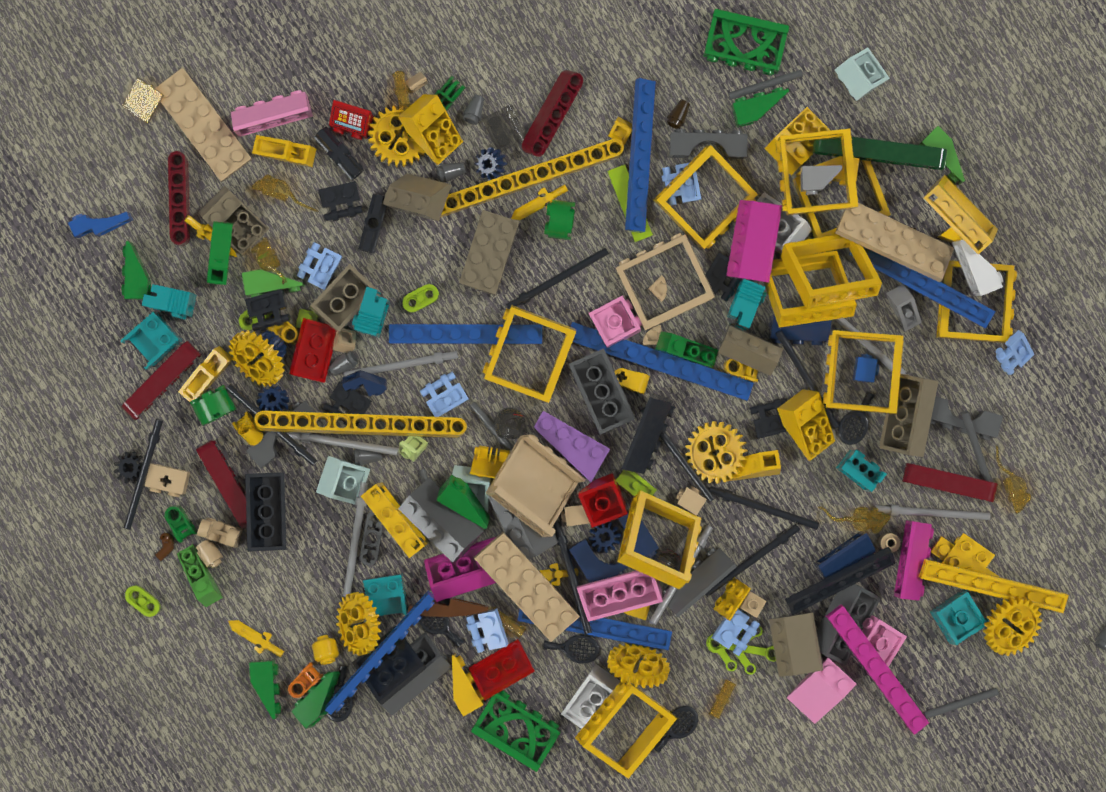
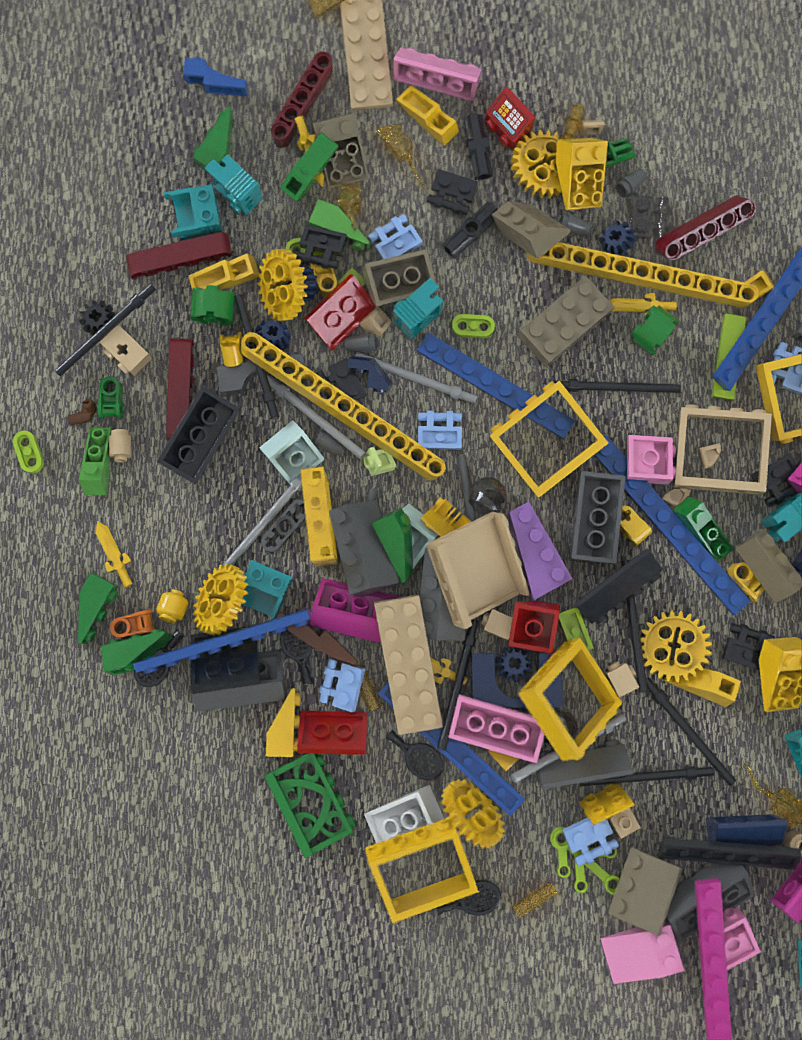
camera: 30 degrees right, 5 degrees down
(220, 532) = (142, 429): tan piece -> none

